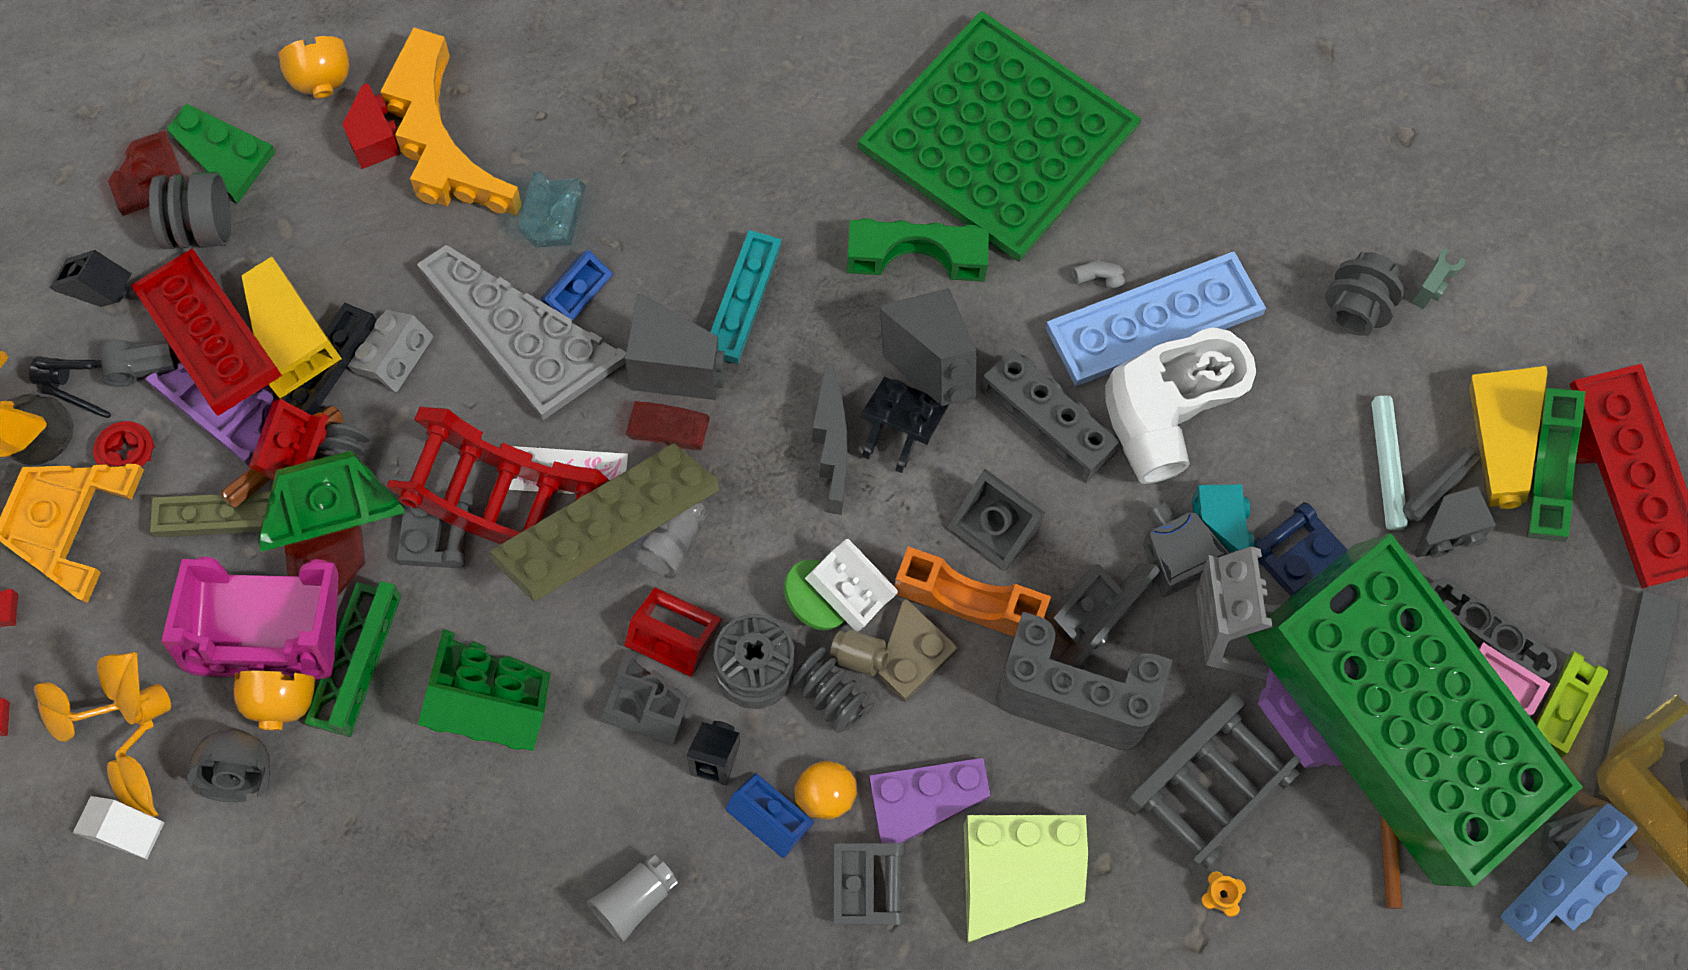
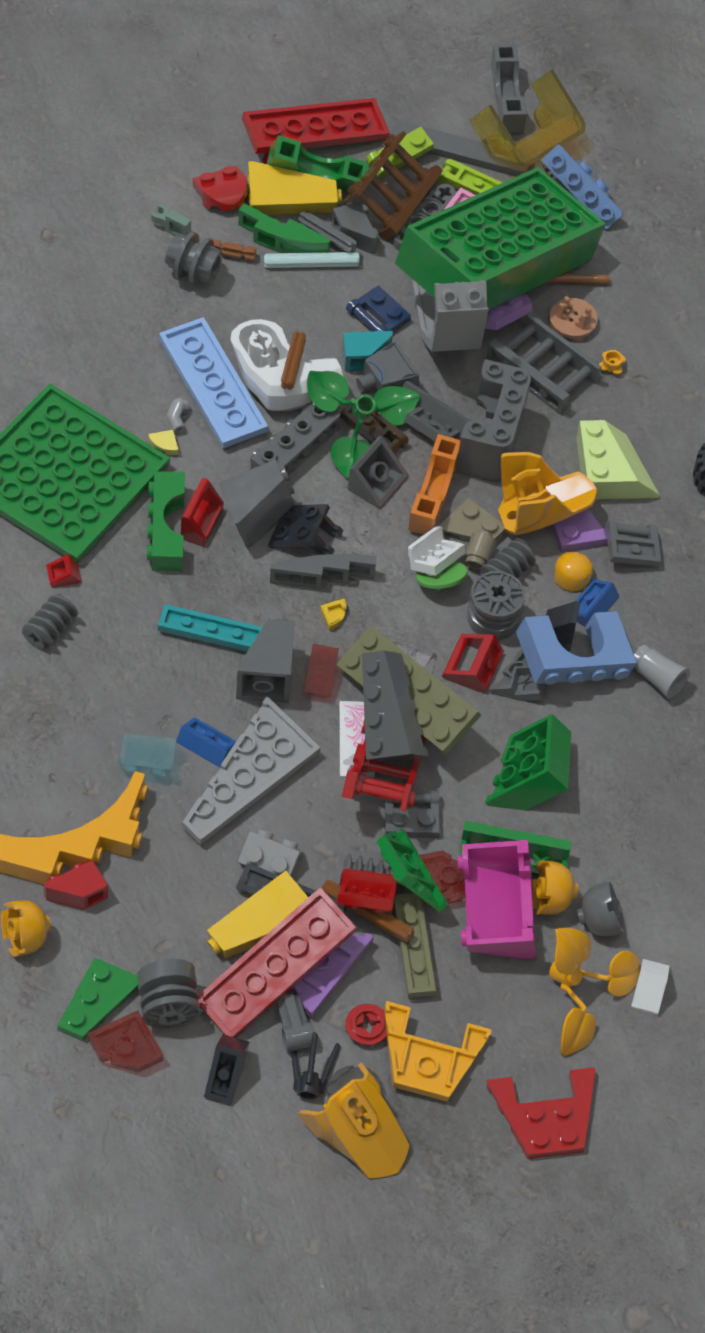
camera: 95 degrees left, 10 degrees down
(560, 482) = (389, 710): none -> dark grey wedge
(658, 825) = (554, 664): none -> medium blue arch
(761, 112) = (49, 621): none -> dark grey piece
(766, 453) = (333, 613): none -> yellow tile
(844, 134) = (63, 572): none -> red slope
(908, 284) = (201, 514): none -> red tile
(943, 745) = (537, 495): none -> light orange piece
(1054, 257) = (164, 441): none -> light yellow tile
(1084, 524) = (376, 426): none -> dark brown plate
(1128, 450) = (329, 389): none -> green plant
(1168, 397) = (293, 360): none -> dark orange axle
(1297, 854) = (578, 311): none -> nougat plate
(1396, 357) = (236, 250): none -> dark orange axle
(1426, 423) = (282, 238): none -> green slope
(1507, 343) = (222, 188): none -> red slope
(1532, 611) = (414, 192): none -> reddish brown fence
(1612, 601) = (415, 143): none -> lime plate

